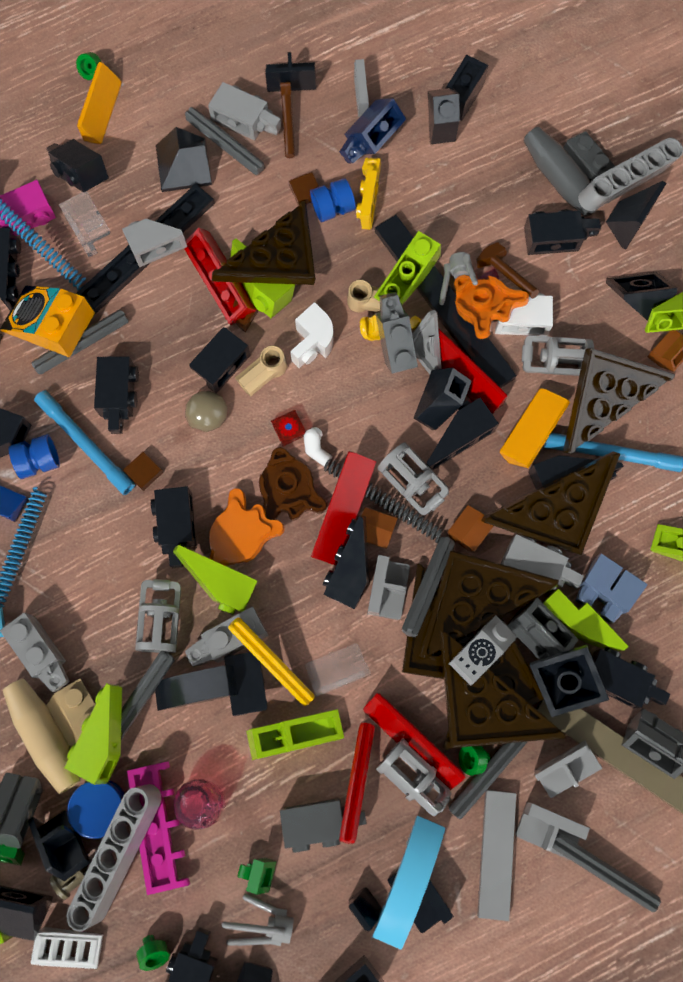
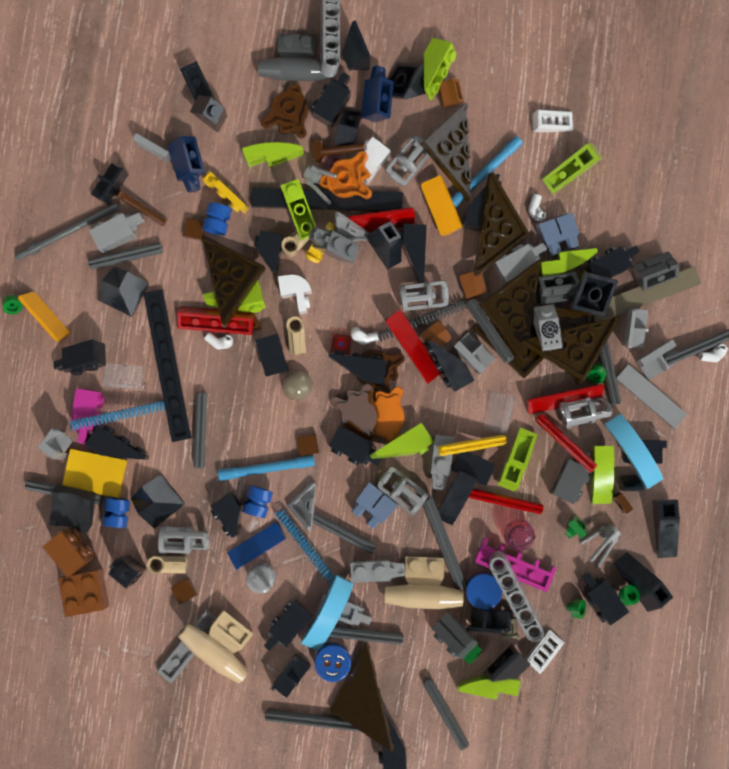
camera: 55 degrees left, 10 degrees up
(49, 318) = (173, 440): light orange slope -> none
(62, 580) = (344, 533): none -> dark grey axle
(64, 513) = (304, 505): none -> light grey tile
(100, 740) = (454, 568): lime slope -> none
(115, 390) = (247, 429): black hinge -> none
(116, 584) = (380, 511): none -> sand blue hips
(153, 240) = (167, 345): light grey slope -> none
(168, 51) = (34, 248): none -> dark grey bar
(195, 297) = (219, 343): none -> white arm
(221, 499) = (359, 411): none -> reddish brown tile
(232, 757) = (506, 501): none -> red axle
(275, 470) = (365, 369): none -> black slope
(331, 915) = (622, 503): none -> reddish brown tile
(338, 276) = (270, 249): none -> black slope
(350, 860) = (603, 476): none -> lime slope
(449, 208) = (273, 153): none -> lime slope
(509, 198) = (289, 112): none -> reddish brown tile
(543, 267) = (348, 127): none -> black slope
(602, 272) = (377, 96): none -> dark blue hinge
(611, 903) = (715, 355): none -> white arm
(615, 540) = (534, 209): none -> white arm

